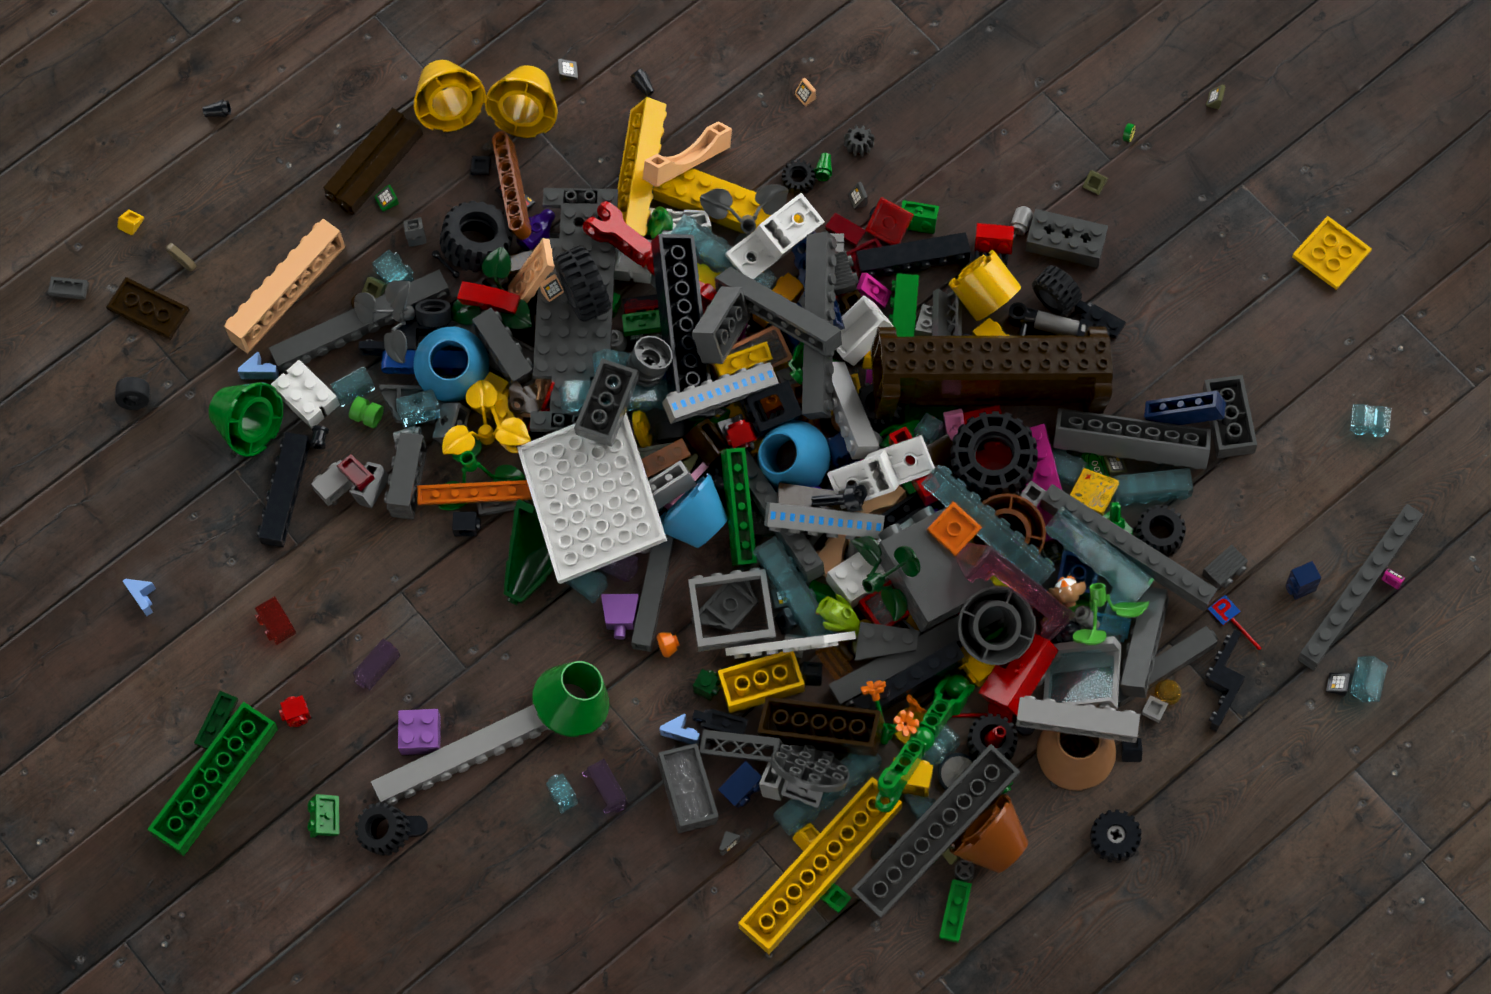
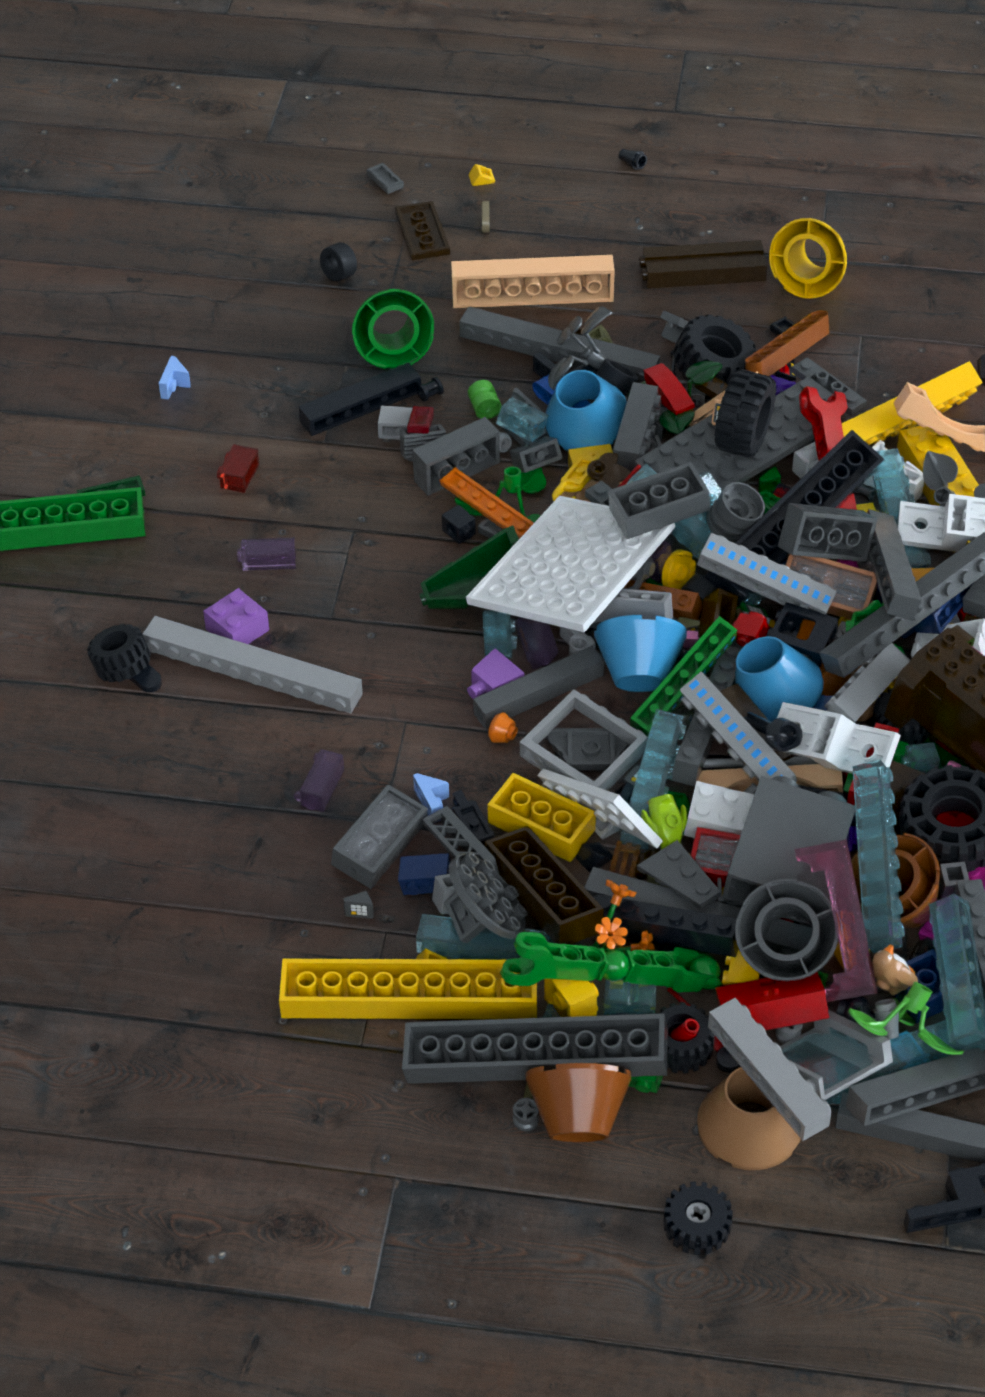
camera: 45 degrees right, 20 degrees down
(254, 370) = (446, 316): light blue slope -> none
(294, 711) = (171, 532): red brick -> none
(305, 394) = (456, 350): white piece -> none
(323, 815) = (95, 613): green bracket -> none
(352, 386) = (502, 376): clear light blue brick -> none
(386, 198) = (684, 294): slope -> none
(391, 268) = (627, 331): clear light blue brick -> none
(511, 433) = (566, 482): yellow plant -> none
(522, 102) = (865, 300): yellow cone -> none
(561, 792) = (278, 748): clear light blue brick -> none
(562, 710) = (368, 706): green cone -> none
(567, 69) = (933, 319): slope -> none
(659, 221) = (880, 443): green plate -> none
(707, 684) = (492, 779): dark green brick -> none
(744, 359) = (825, 575): yellow tile -> none
(836, 898) = (390, 1028): green slope -> none
(892, 598) = (722, 804): dark green plant -> none
(954, 528) = (840, 821): orange tile -> none
(955, 911) = (476, 1136): green plate -> none
(1132, 751) = (804, 1168): black slope -> none
(1154, 709) = (867, 1155): light grey plate -> none
(1168, 691) = (898, 1154): clear yellow cone -> none

